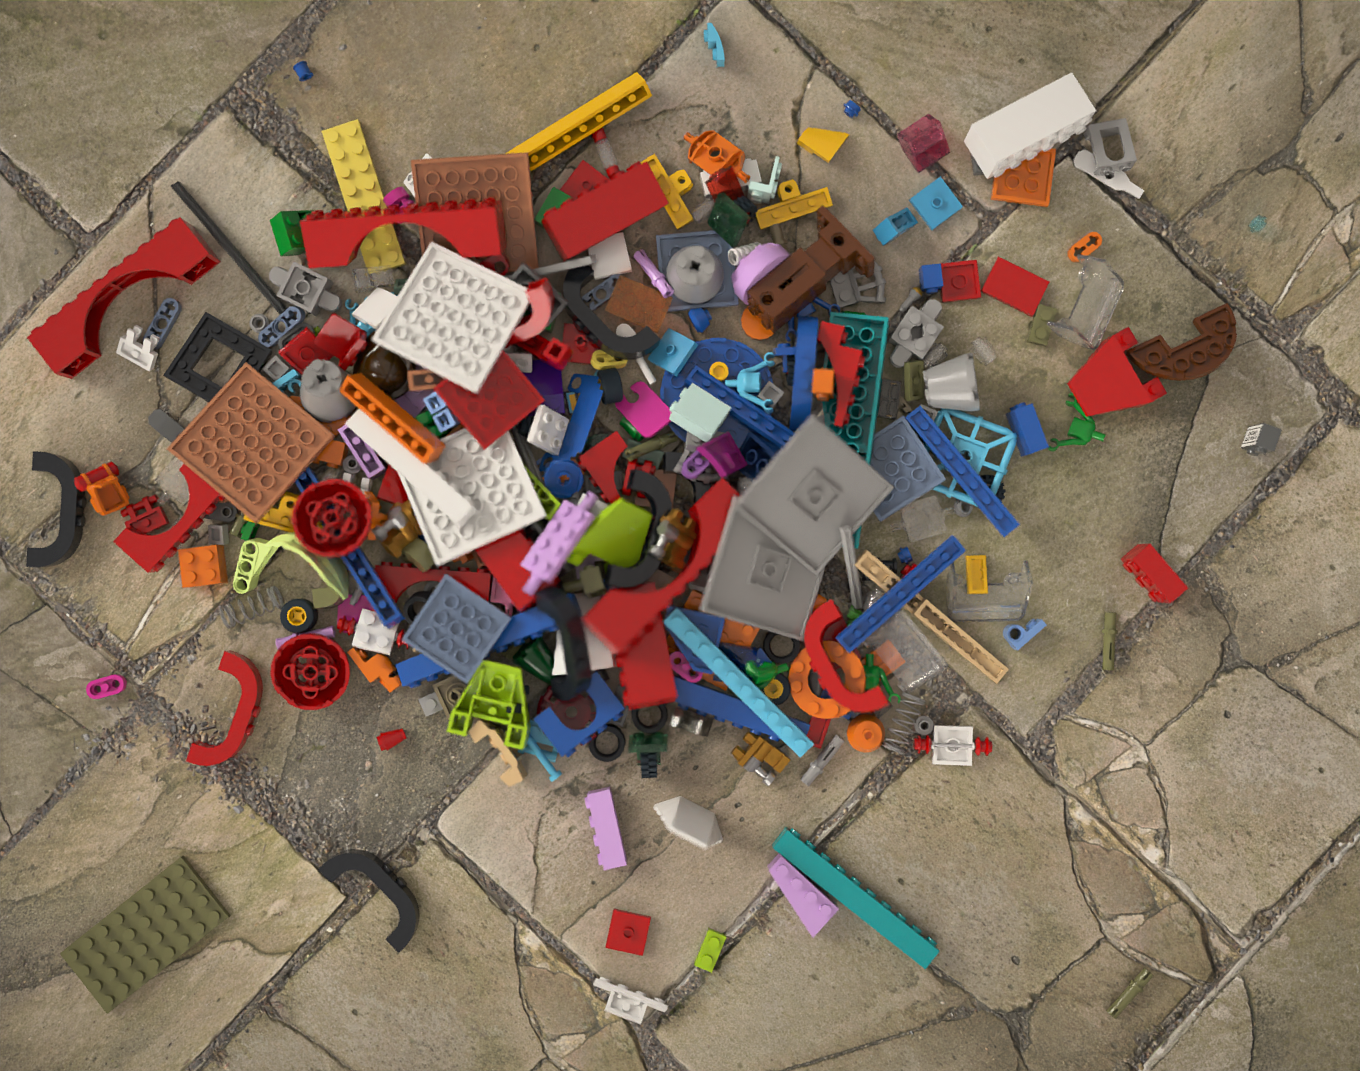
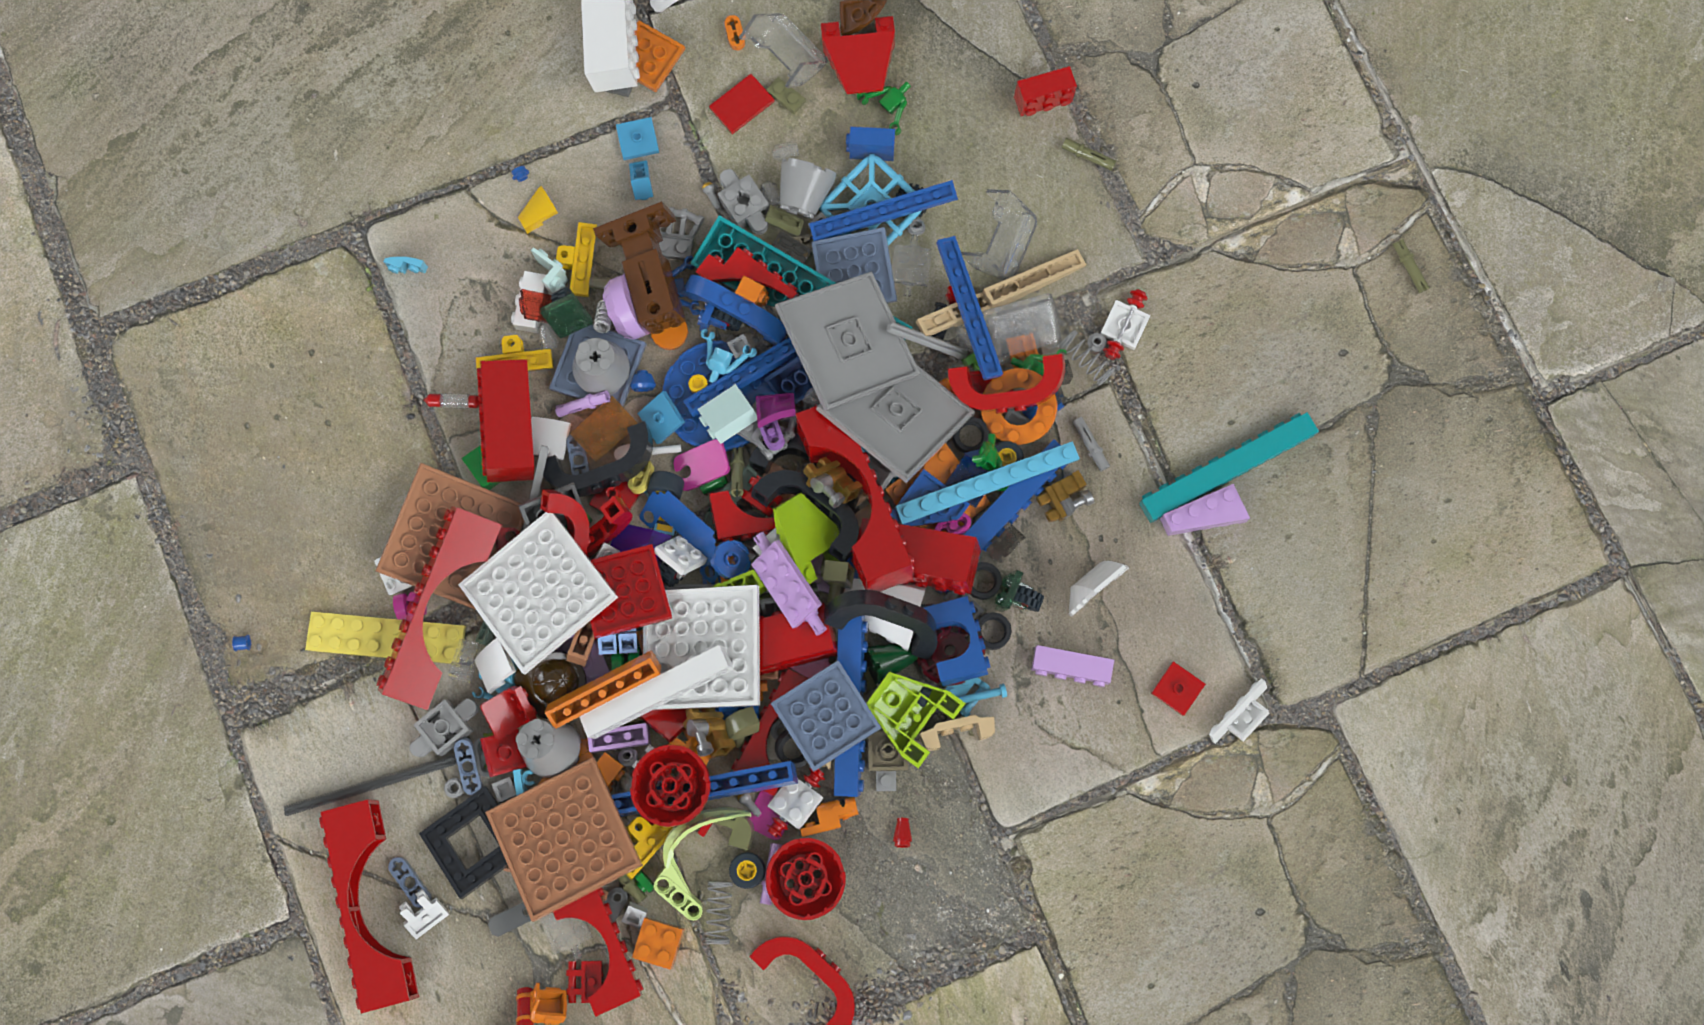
camera: 65 degrees left, 10 degrees down
(288, 232) = (385, 716): green slope -> none
(383, 877) = (1046, 891): black arch -> none
(581, 179) = (468, 431): red plate -> none
(584, 120) = (415, 403): yellow brick -> none
(710, 141) = (489, 304): orange plate -> none
(710, 950) = (1225, 620): lime plate -> none
(818, 730) = (1061, 434): red tile -> none
(865, 733) = (1082, 395): orange cone -> none
(904, 555) = (937, 294): blue plate -> none
(924, 142) = (579, 125): clear pink slope -> none
(931, 278) = (701, 169): blue brick -> none
(960, 281) = (714, 147): red tile -> none
(976, 574) = (981, 240): yellow plate -> none
(1024, 635) = (1052, 223): medium blue plate -> none

